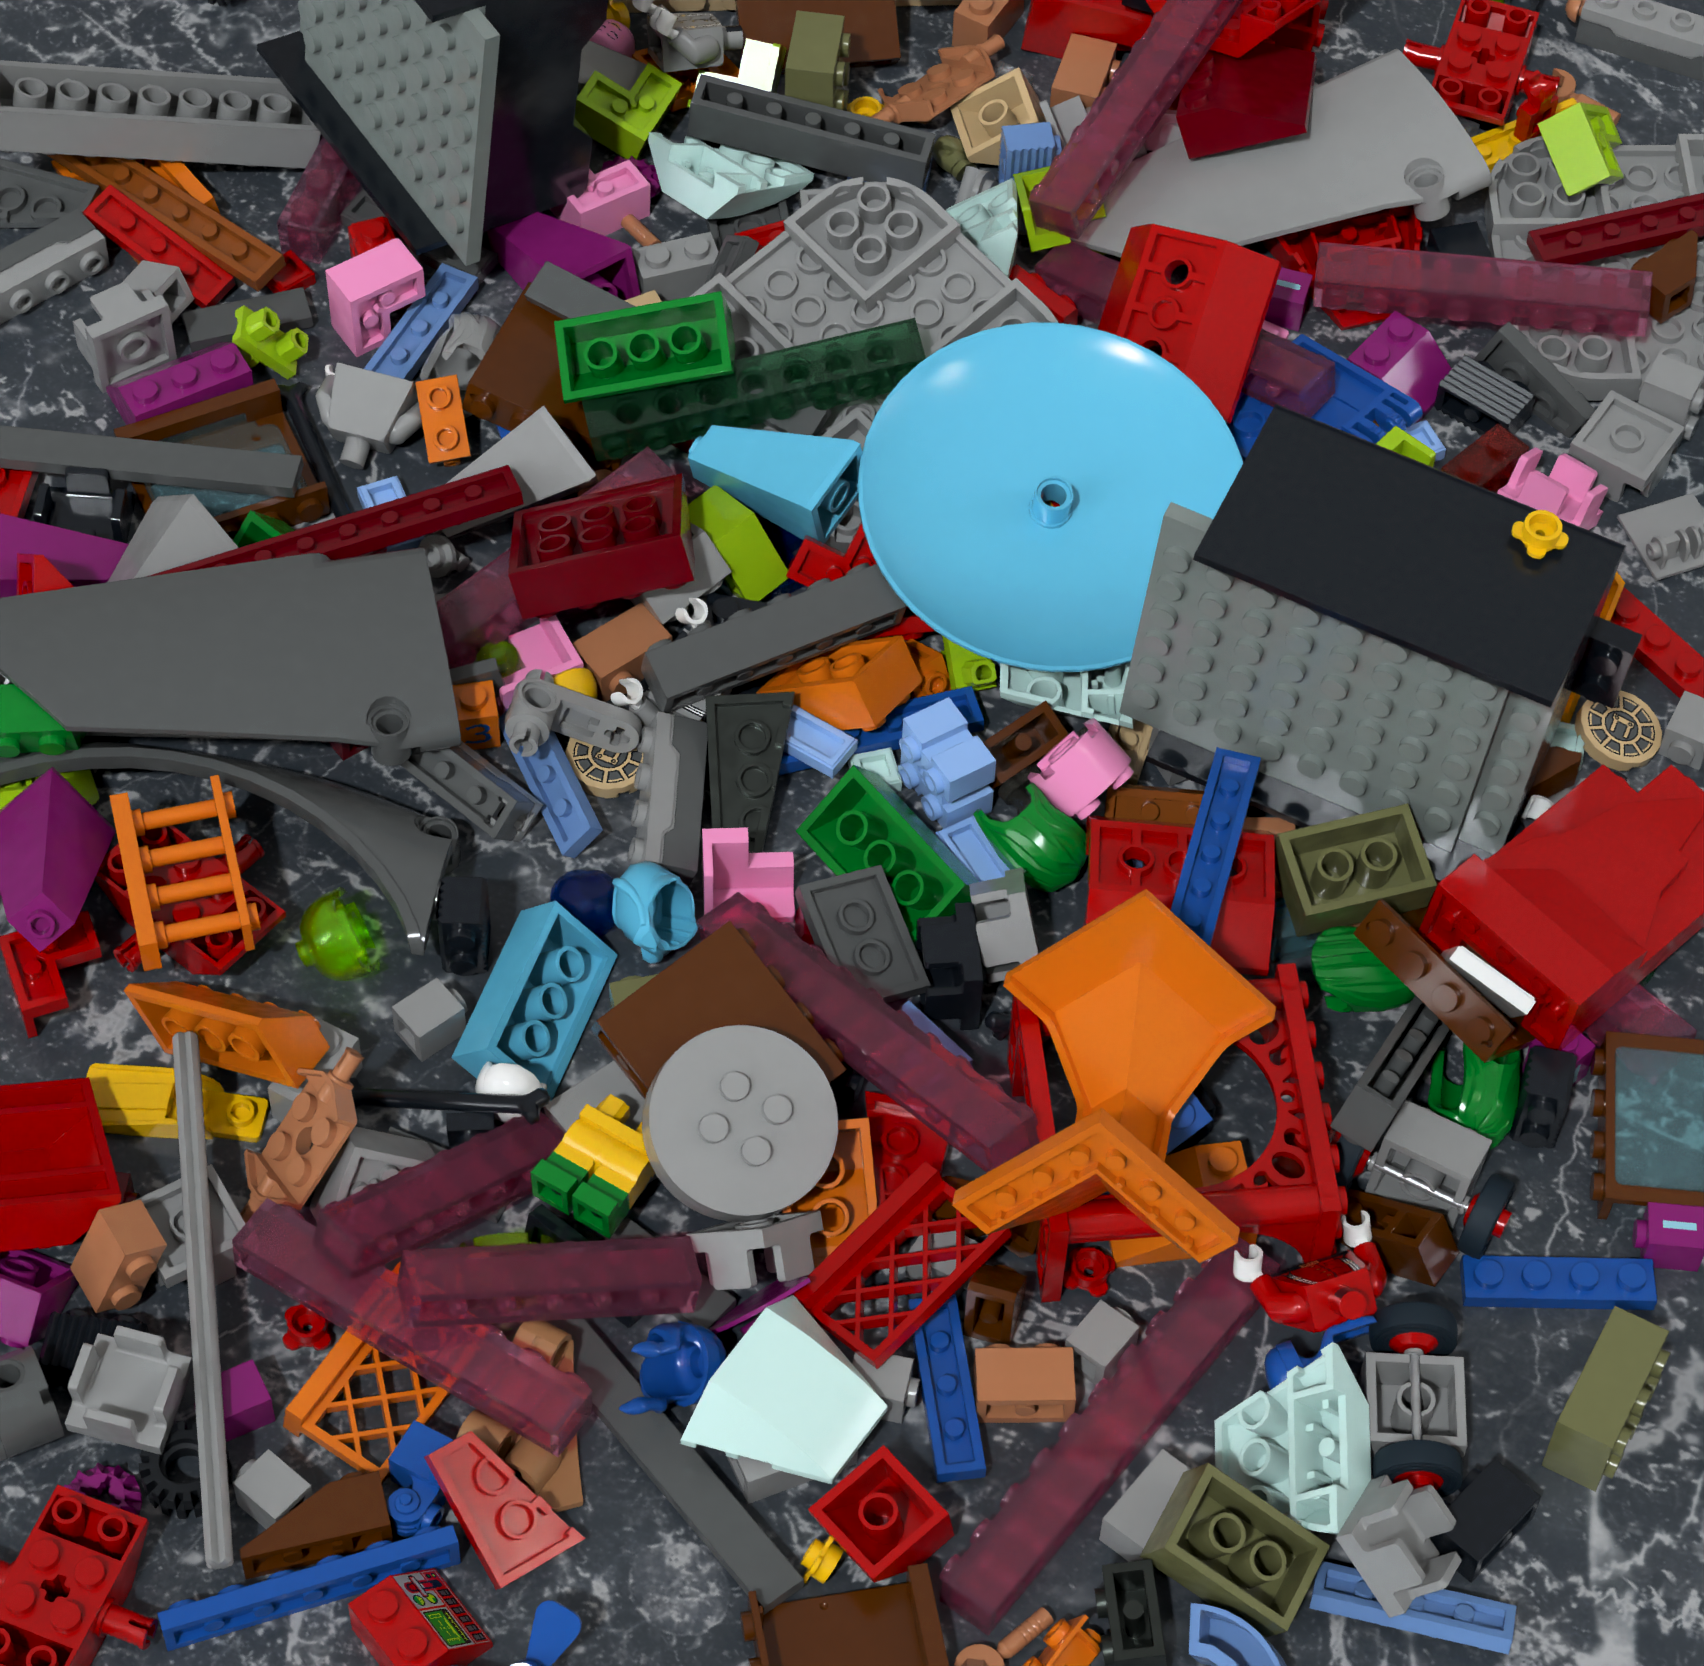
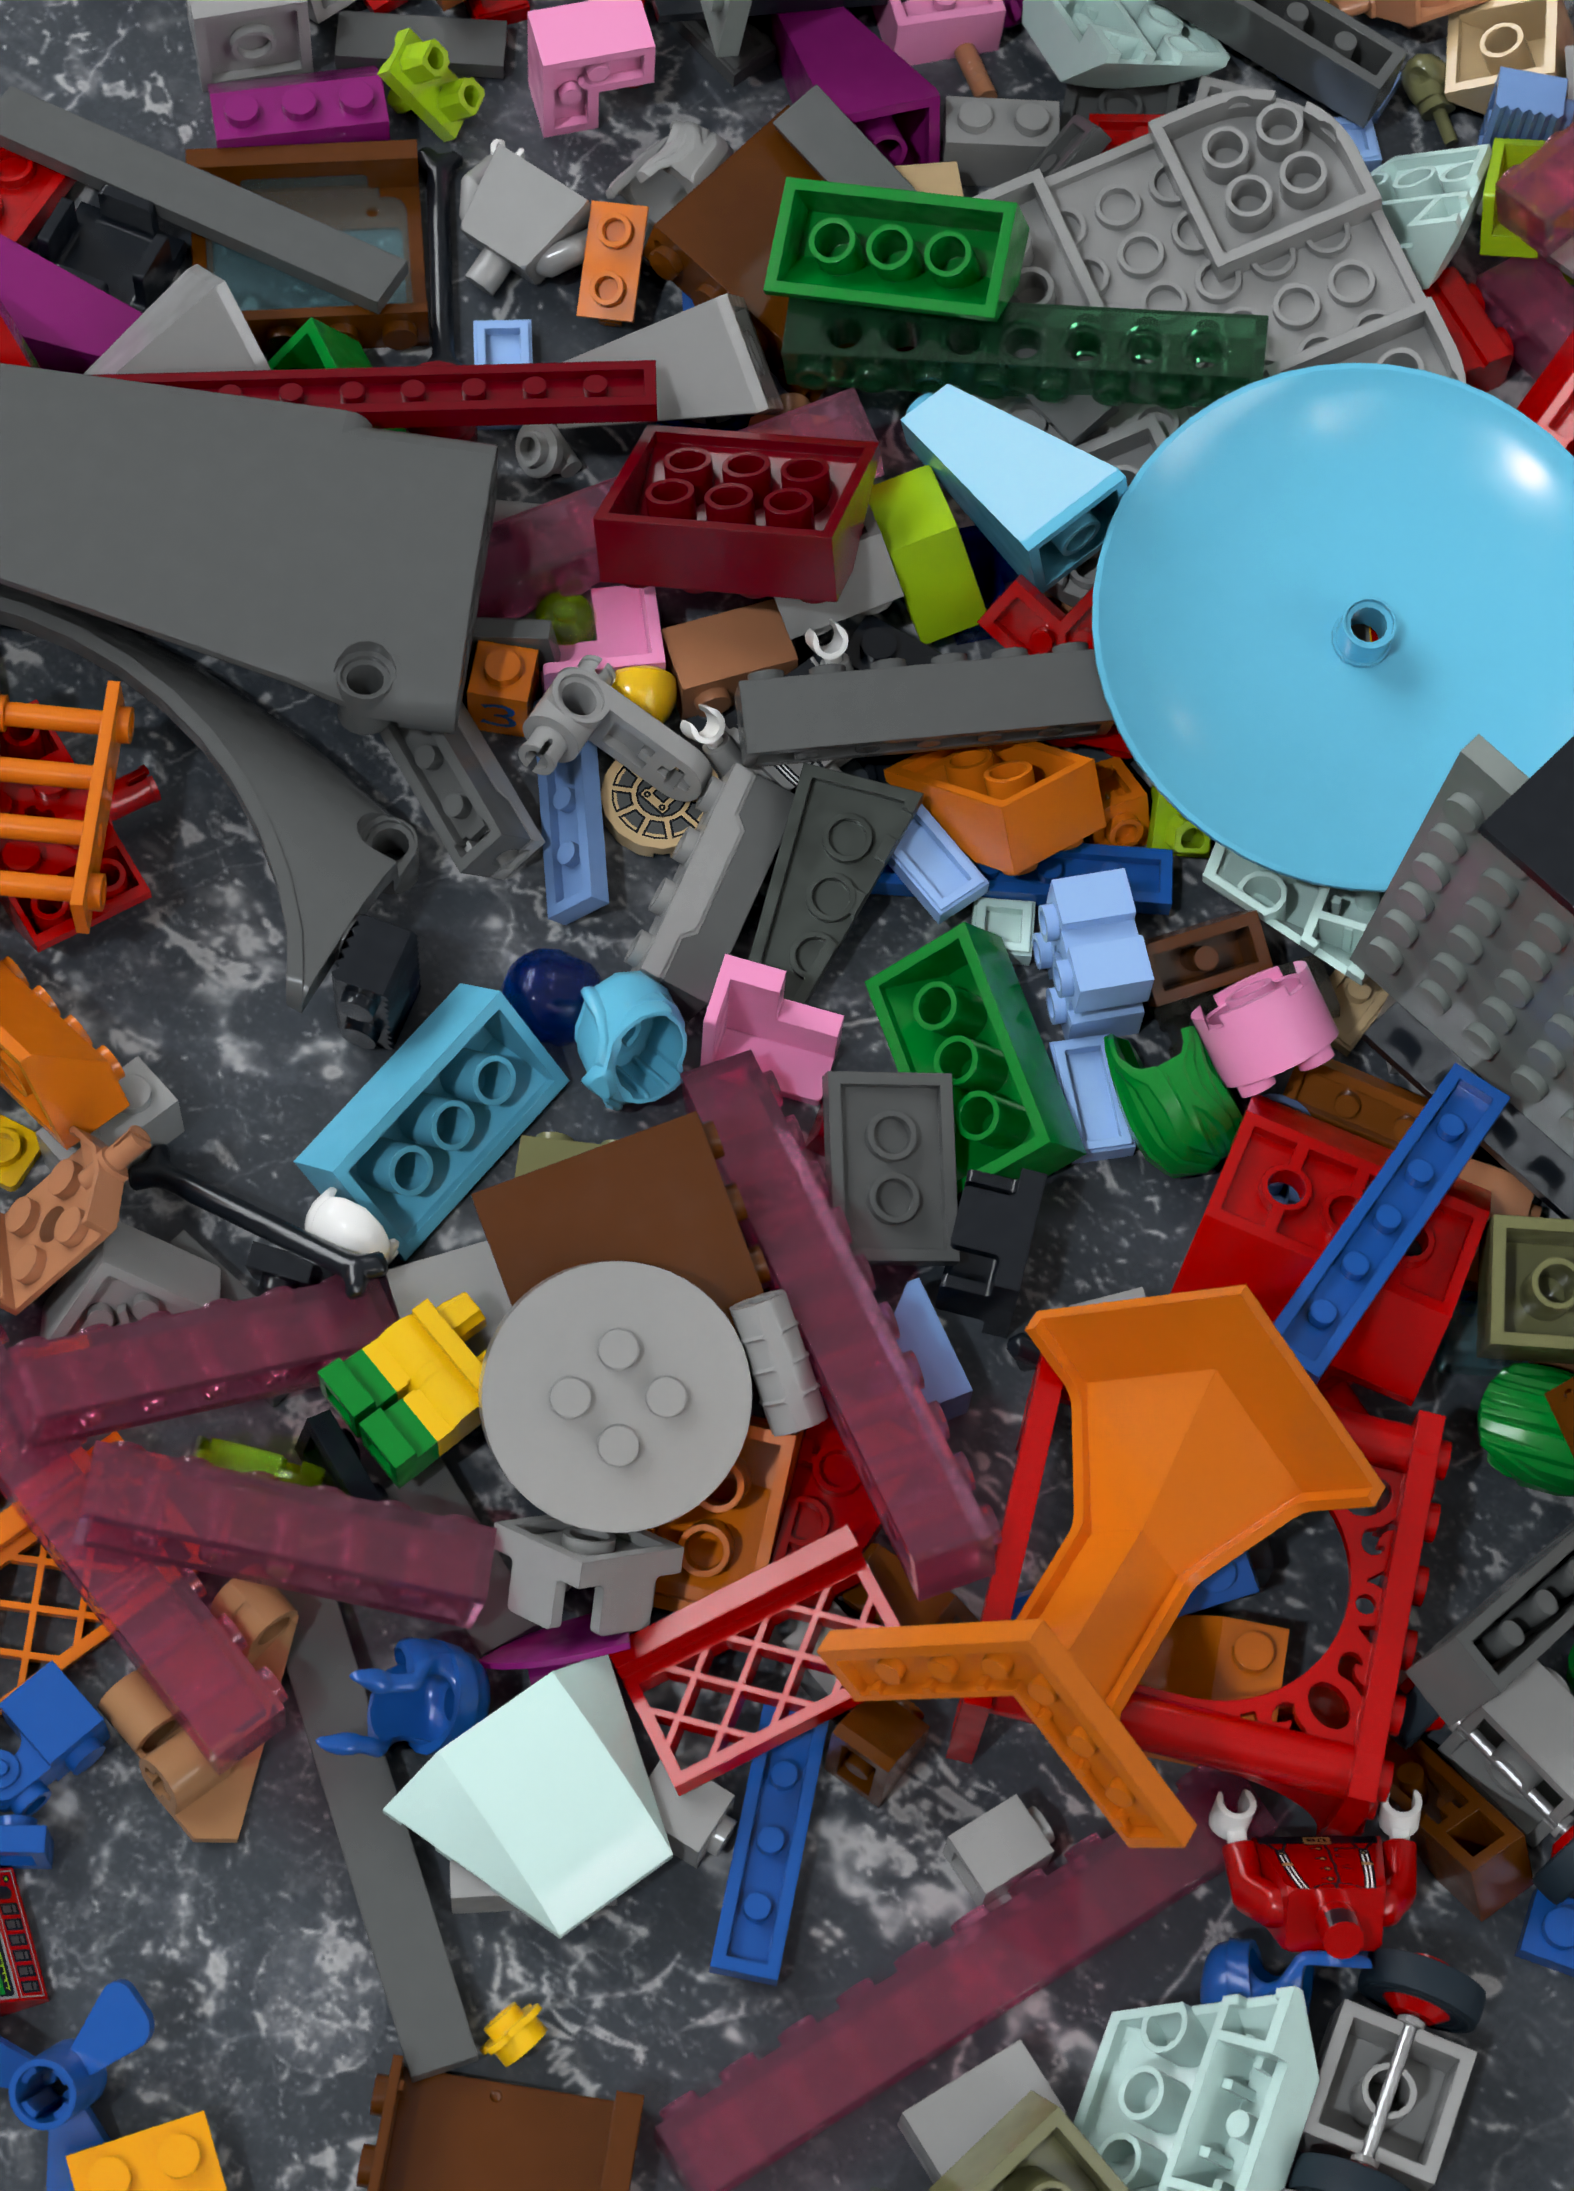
camera: 15 degrees right, 10 degrees up
(336, 938) = (209, 946): clear neon green cylinder -> none
(424, 323) = (637, 120): medium blue plate -> none
(430, 1018) = (290, 1095): light grey brick -> none
(497, 1511) = (114, 1825): wing -> none
(843, 1067) = (779, 1362): none -> light grey axle
(883, 1517) = (608, 2009): red slope -> none
(974, 182) = (1442, 133): light grey plate -> none
(1004, 923) = (1087, 1232): light grey panel -> none
(1024, 1384) = (874, 1873): nougat brick -> none
(1089, 1259) = (1024, 1758): red plate -> none

